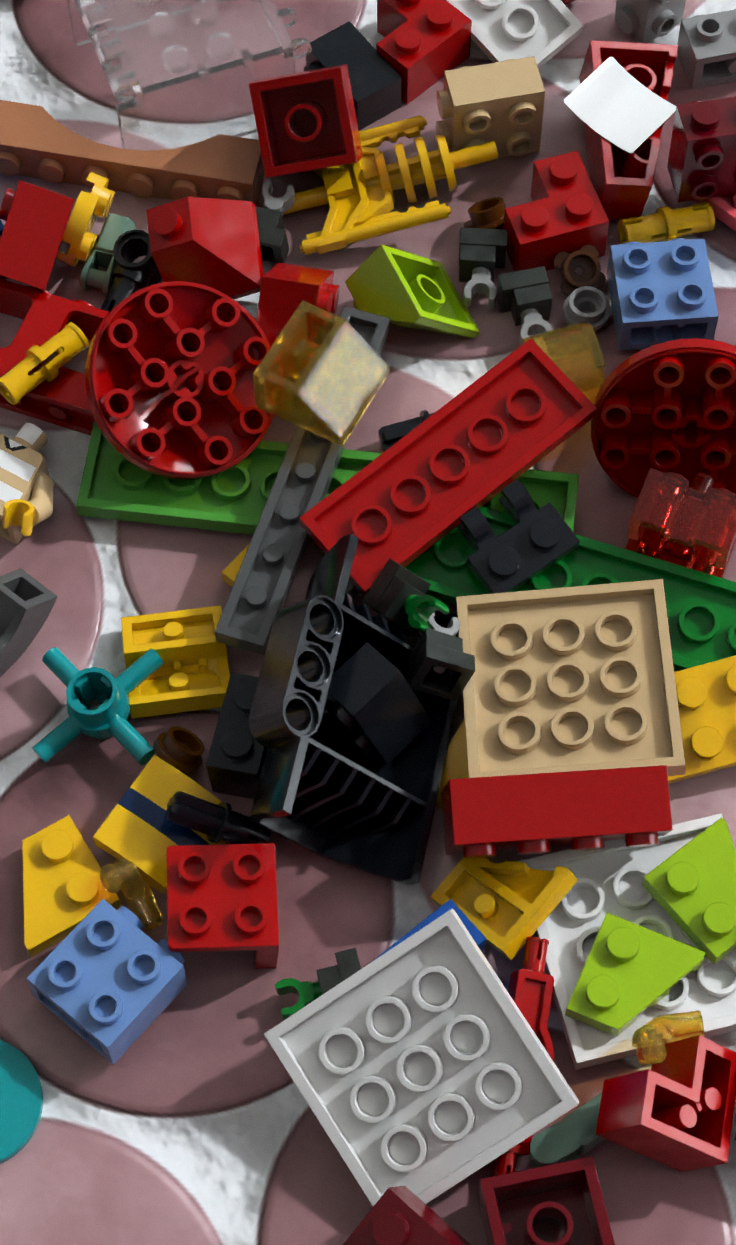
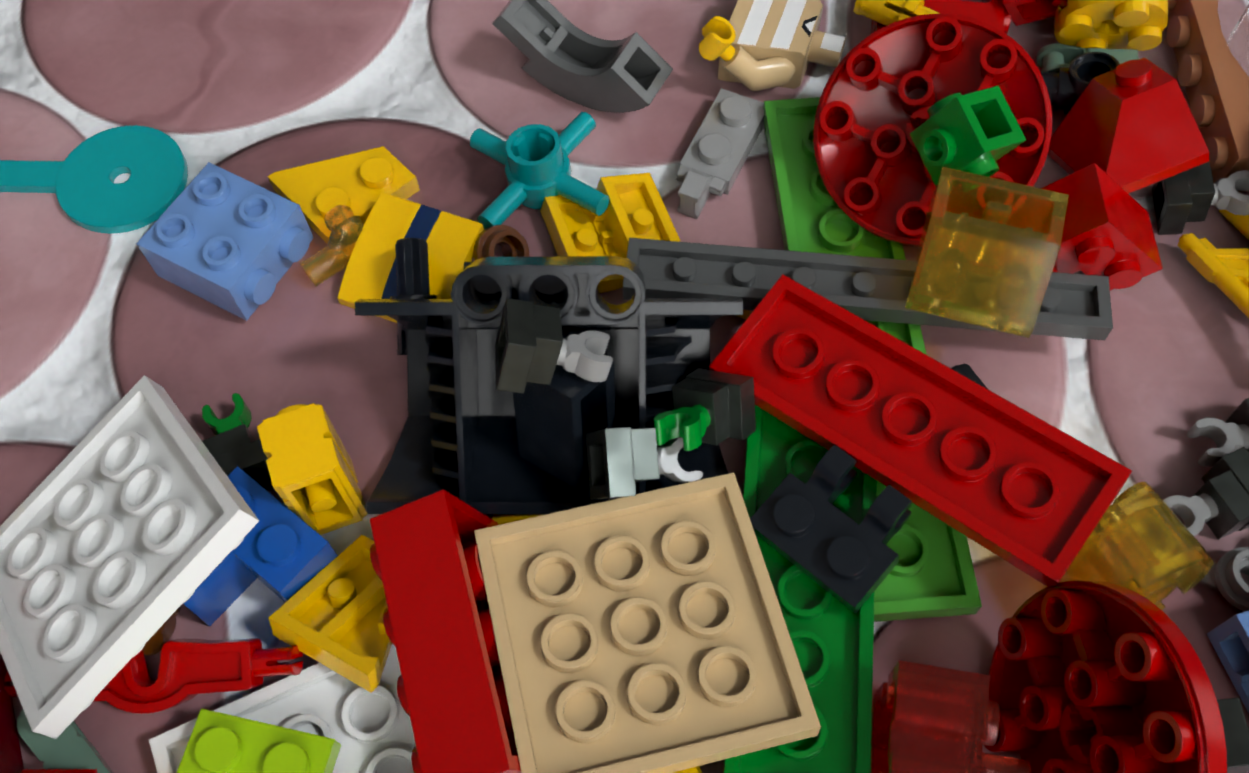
camera: 80 degrees right, 0 degrees up
(107, 558) = (718, 150): none -> light grey hinge
(223, 900) = (308, 324): red bracket -> none
(228, 349) = (968, 133): none -> green brick
(354, 682) = (533, 344): none -> pearl dark grey piece
(375, 907) = (311, 468): none -> yellow brick
(410, 292) = (1173, 361): lime slope -> none

